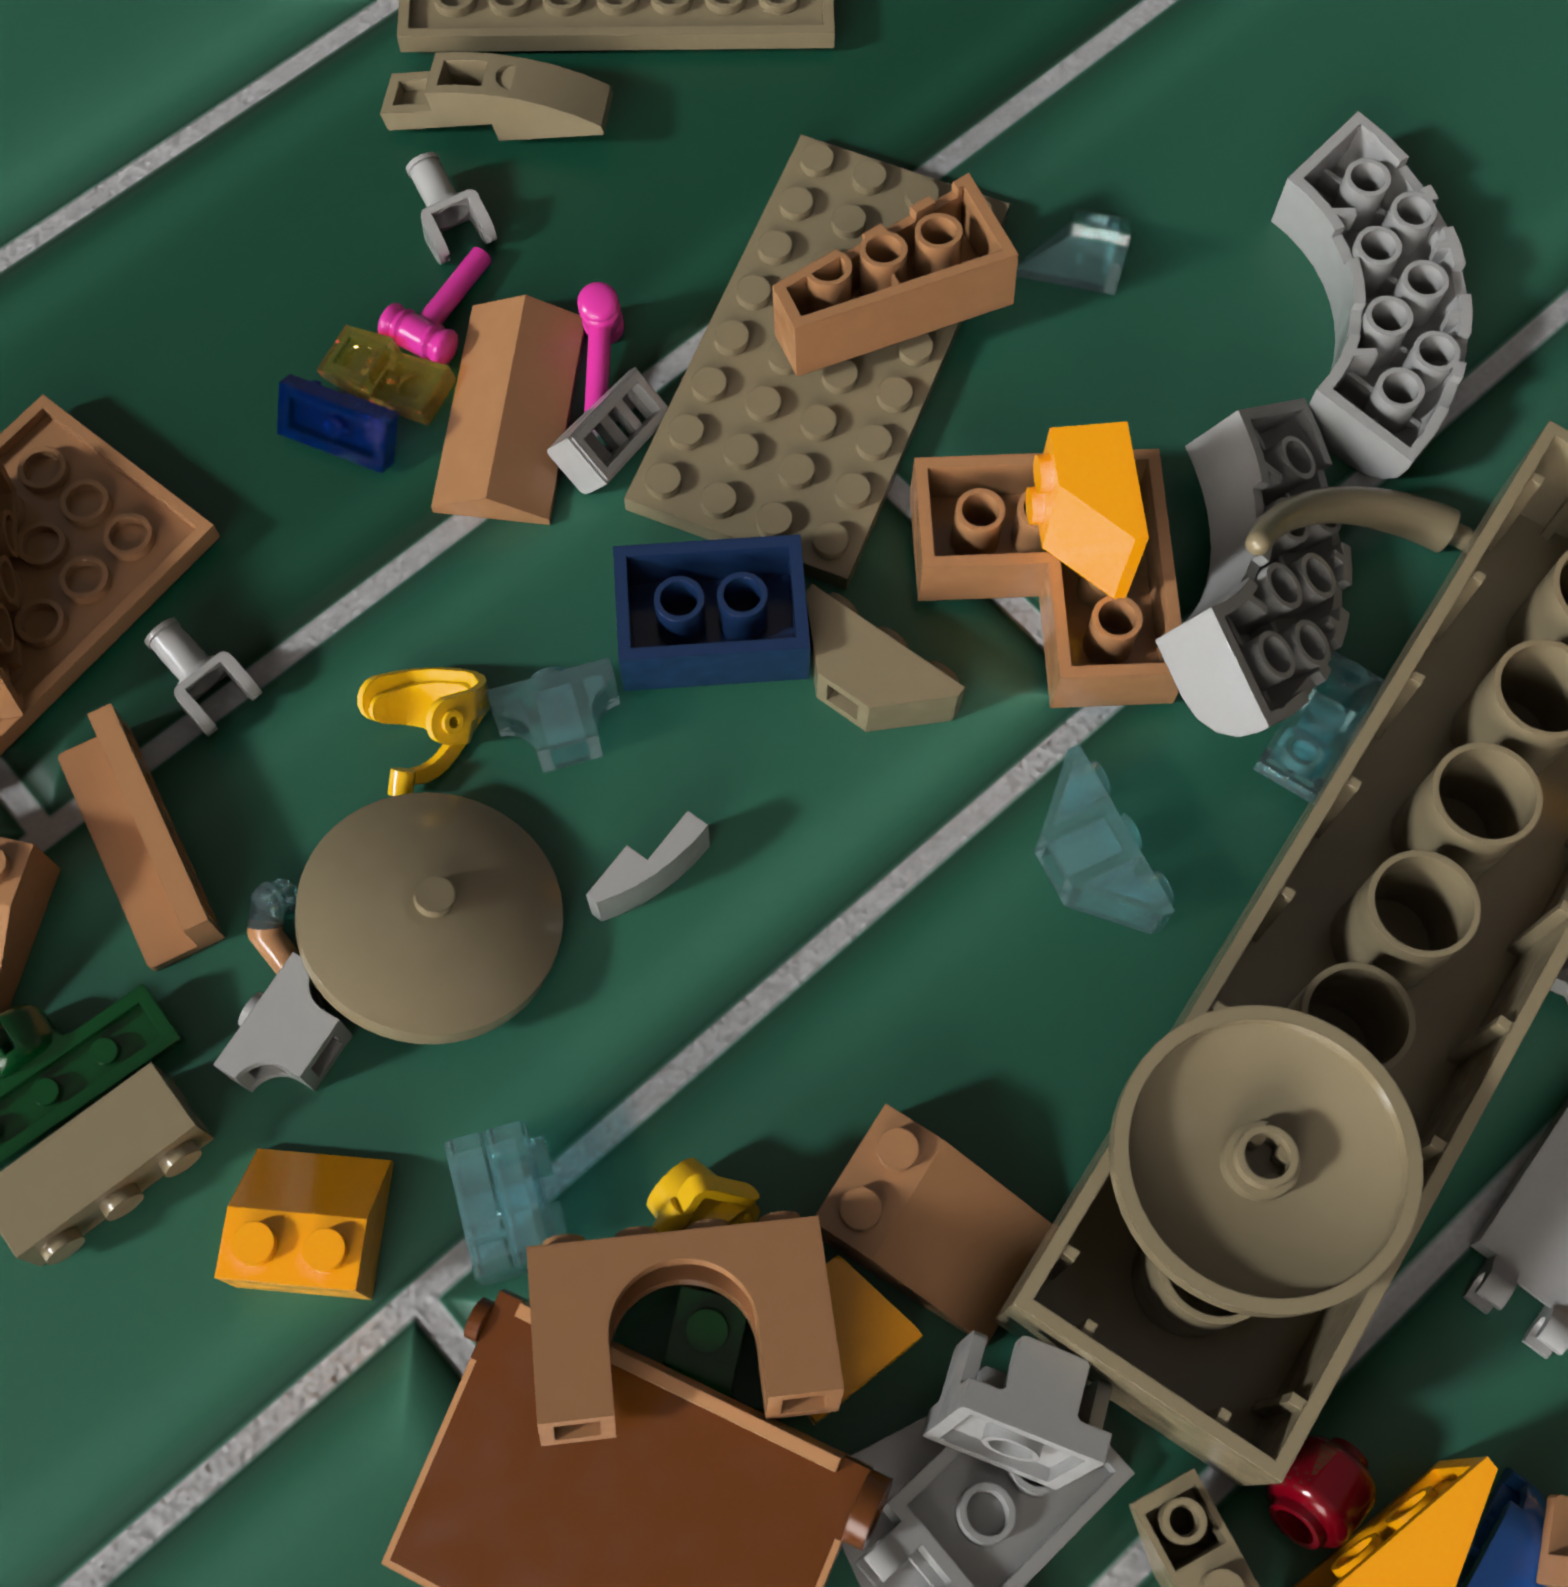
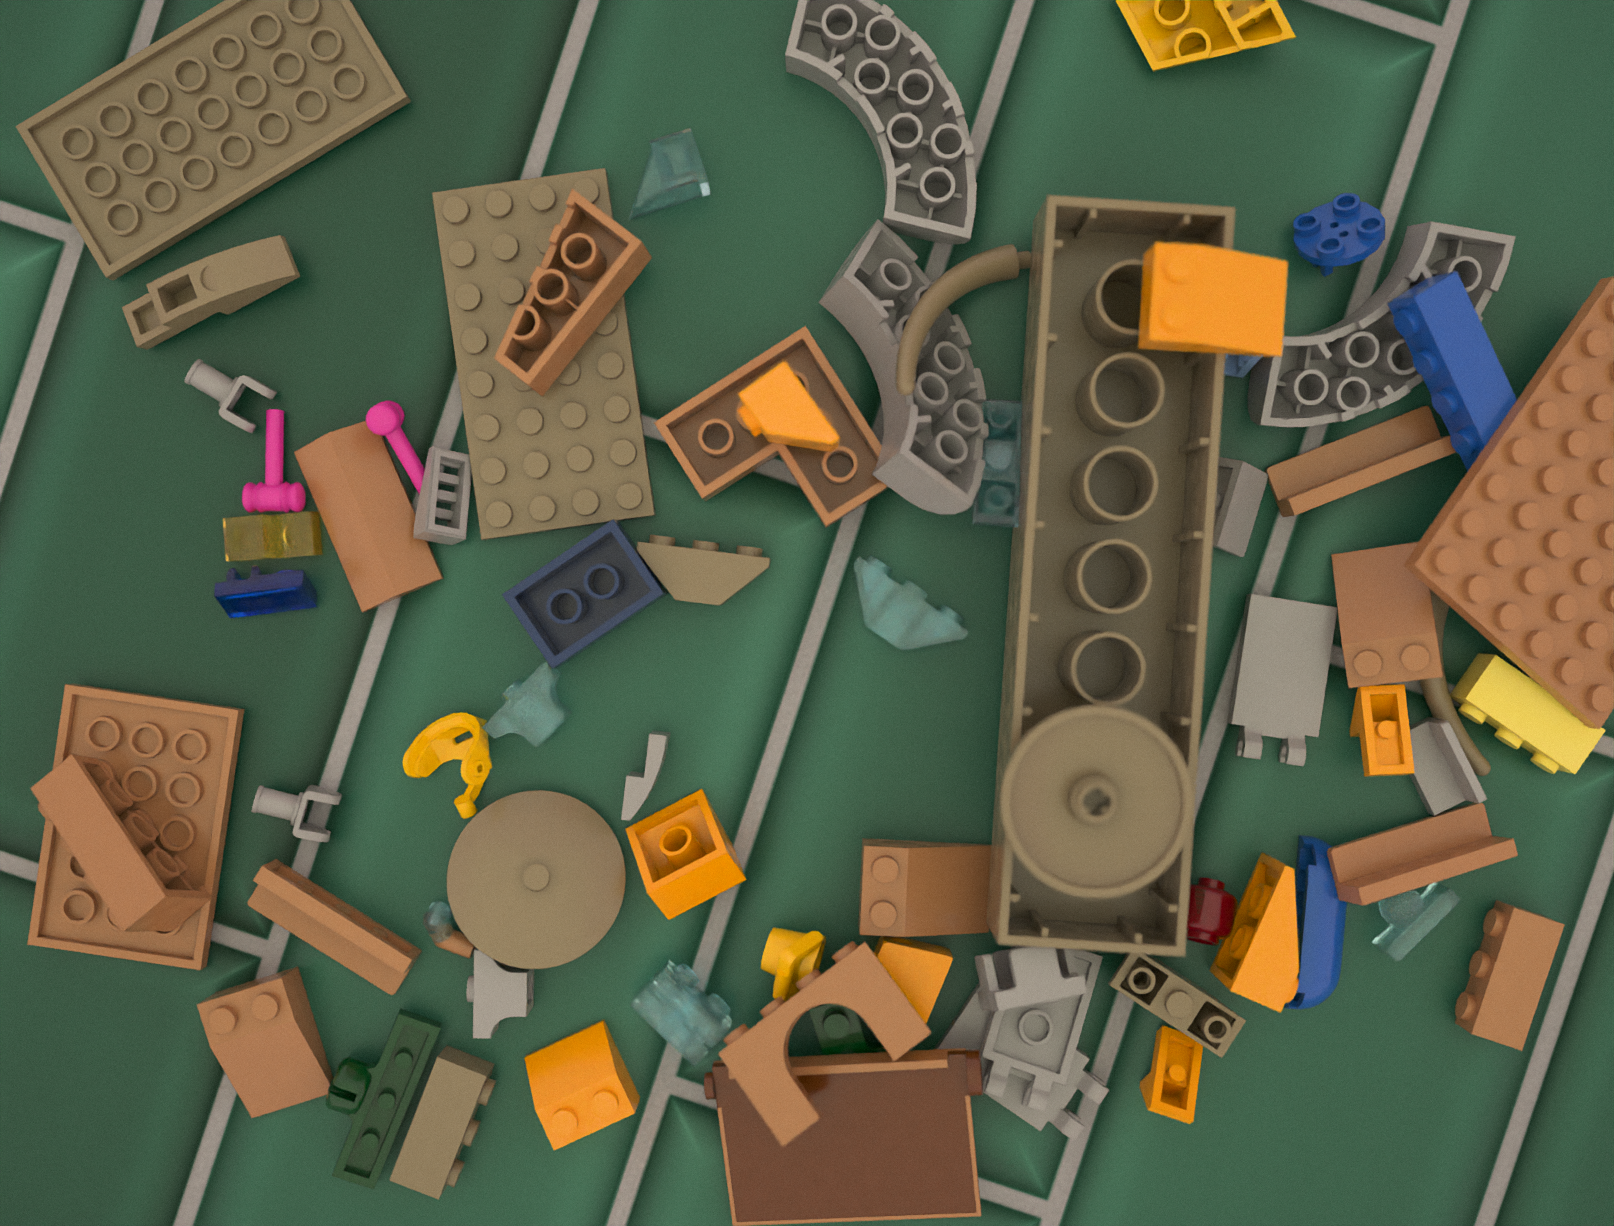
camera: 30 degrees left, 20 degrees up
(636, 1000) = (684, 855): none -> light orange slope

